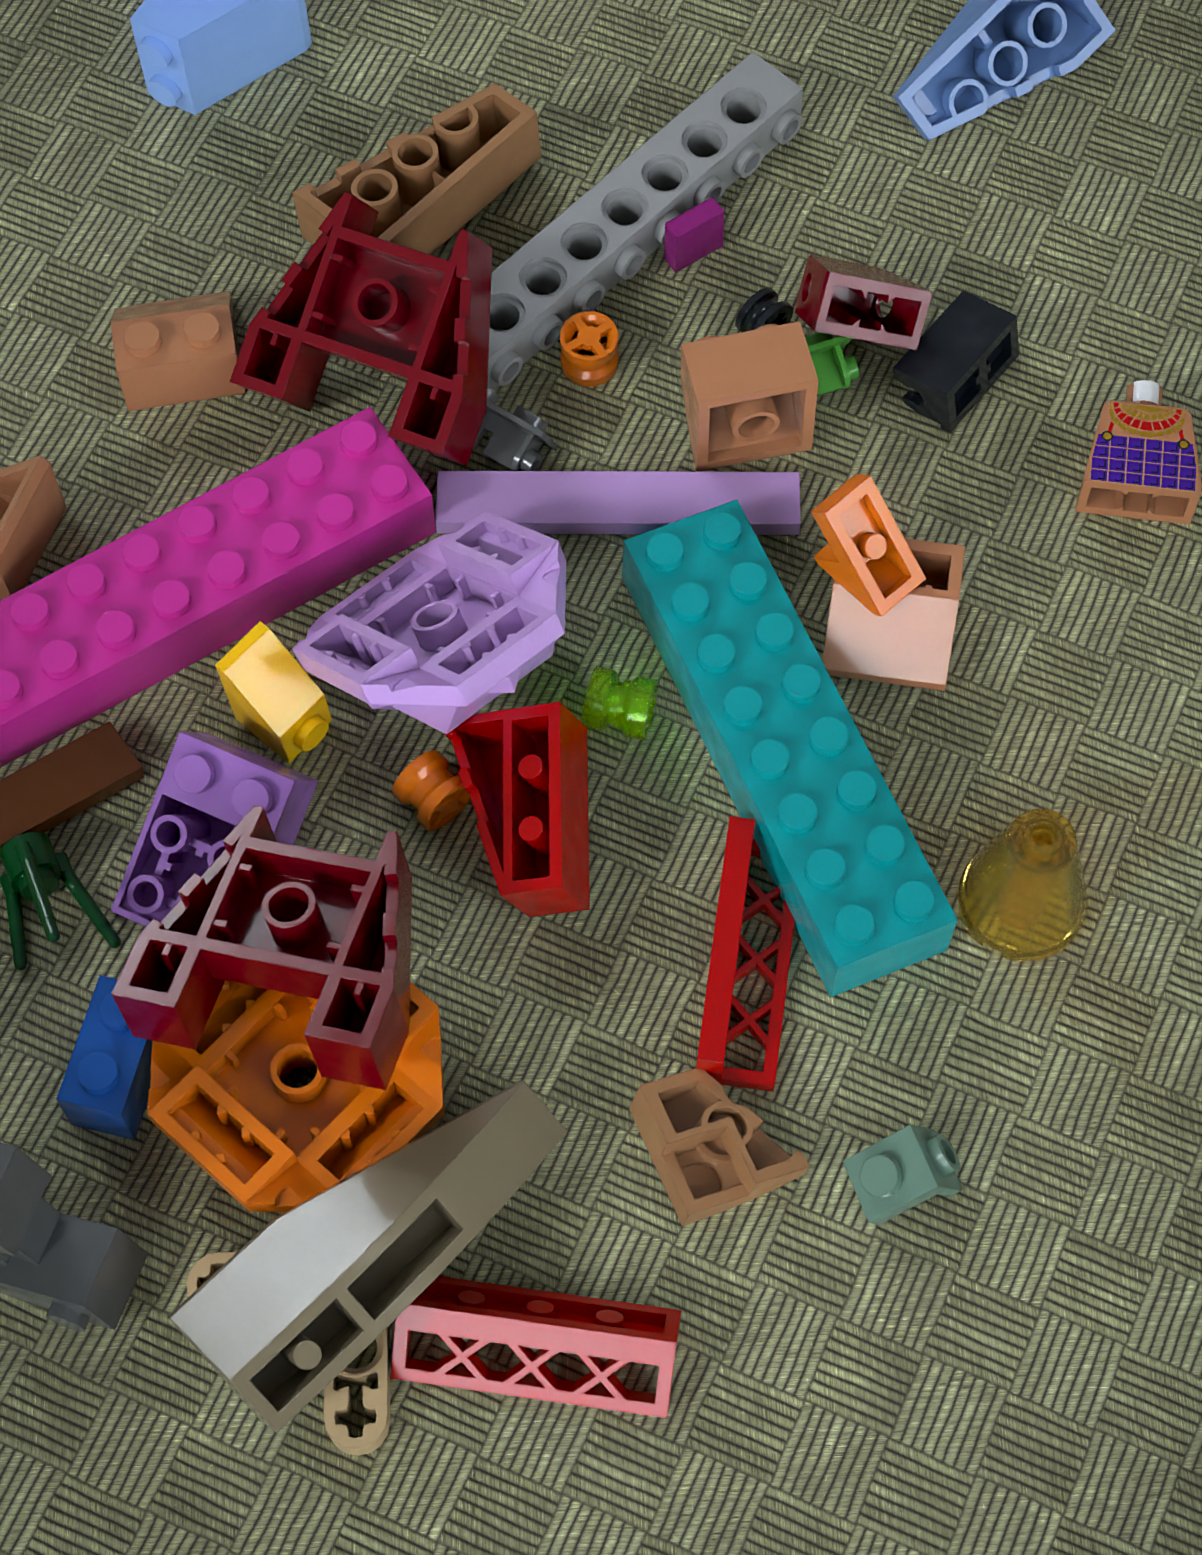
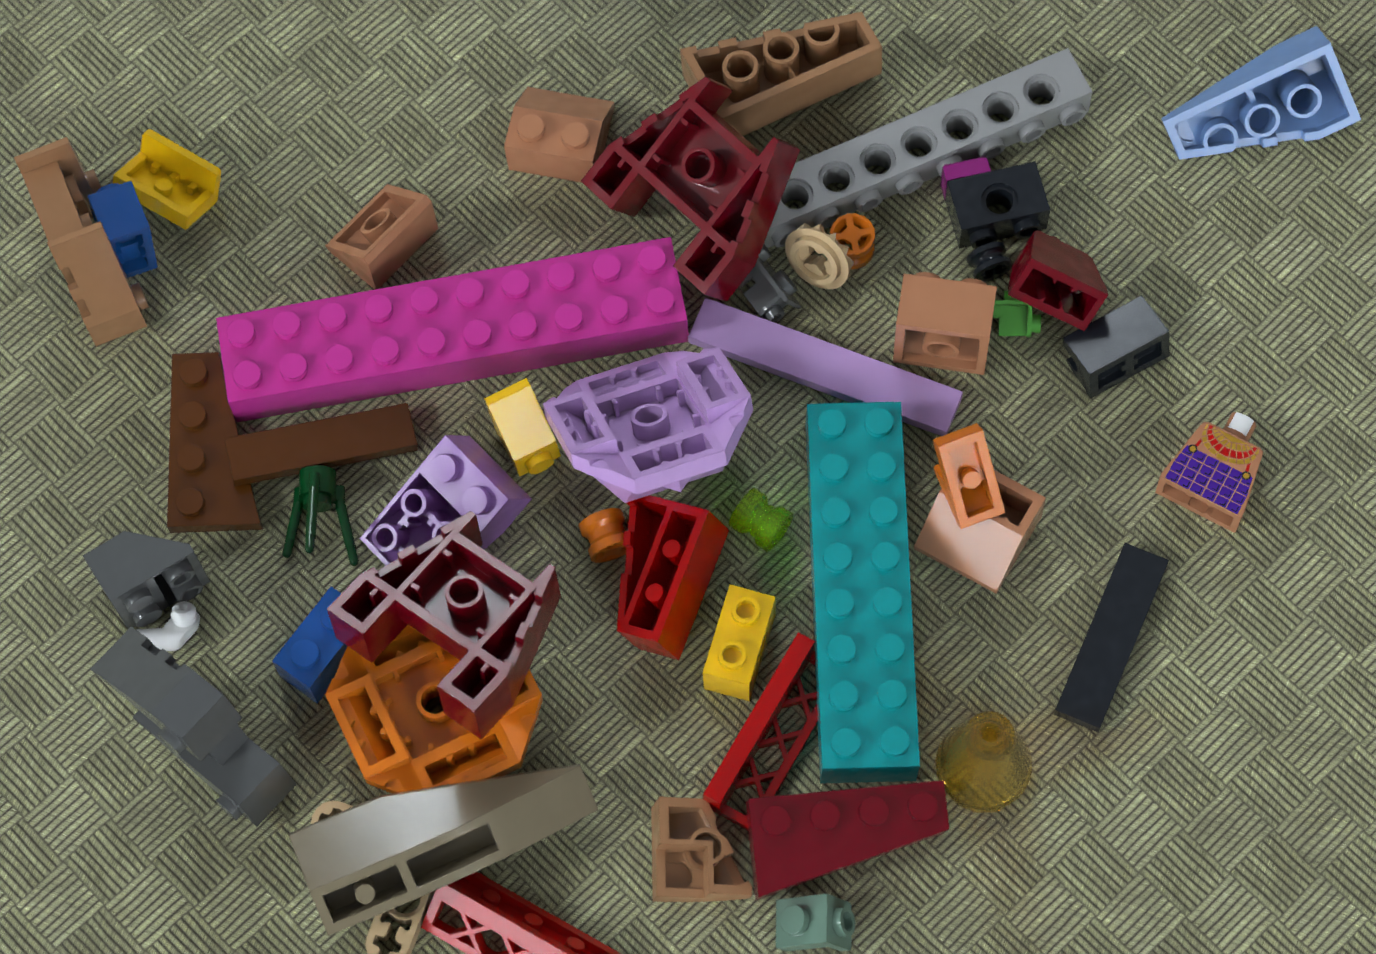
camera: 25 degrees right, 5 degrees up
(558, 395) = (813, 268): none -> tan gear
(659, 858) = (739, 642): none -> yellow brick
(761, 226) = (1014, 187): none -> black brick
(872, 1048) = (829, 831): none -> dark red wedge
(1106, 693) = (1111, 637): none -> black tile

